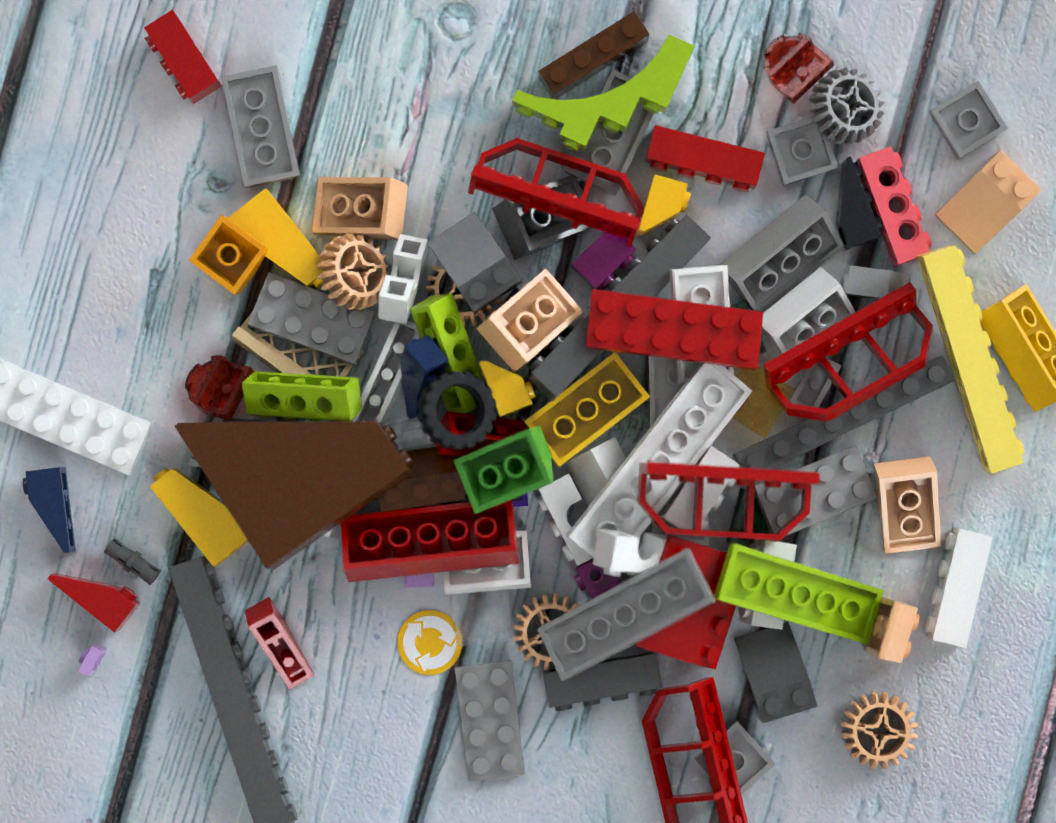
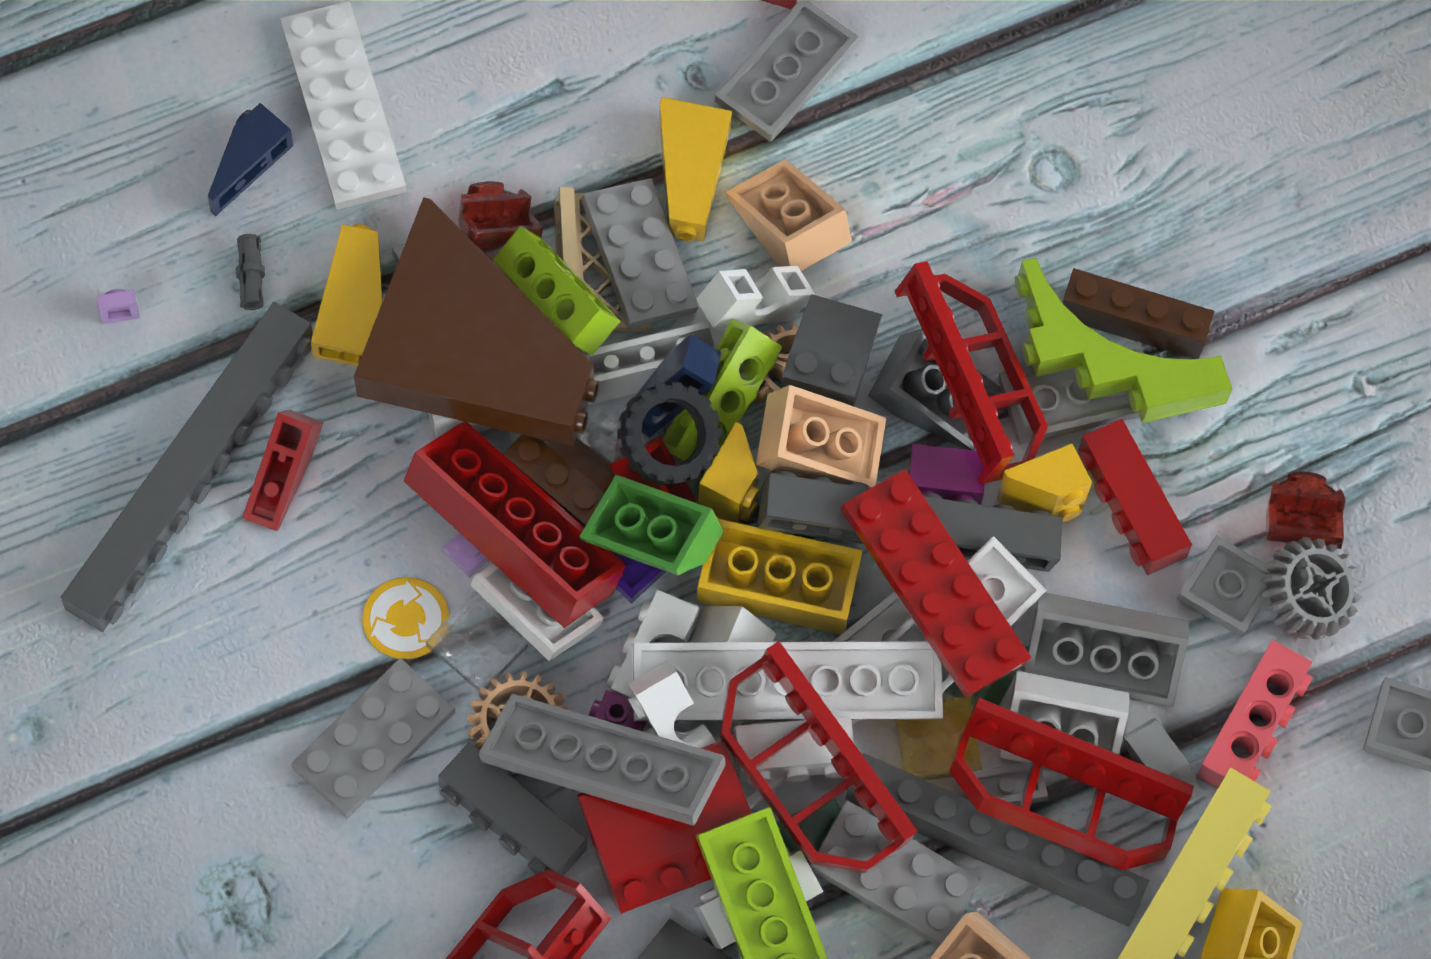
camera: 45 degrees right, 20 degrees down
(104, 601) = (188, 273): red slope -> none
(229, 255) = (636, 127): light orange slope -> none
(358, 256) = (707, 249): light nougat gear -> none
(854, 215) = (1210, 686): black slope -> none
(987, 201) = (1348, 811): light nougat slope -> none

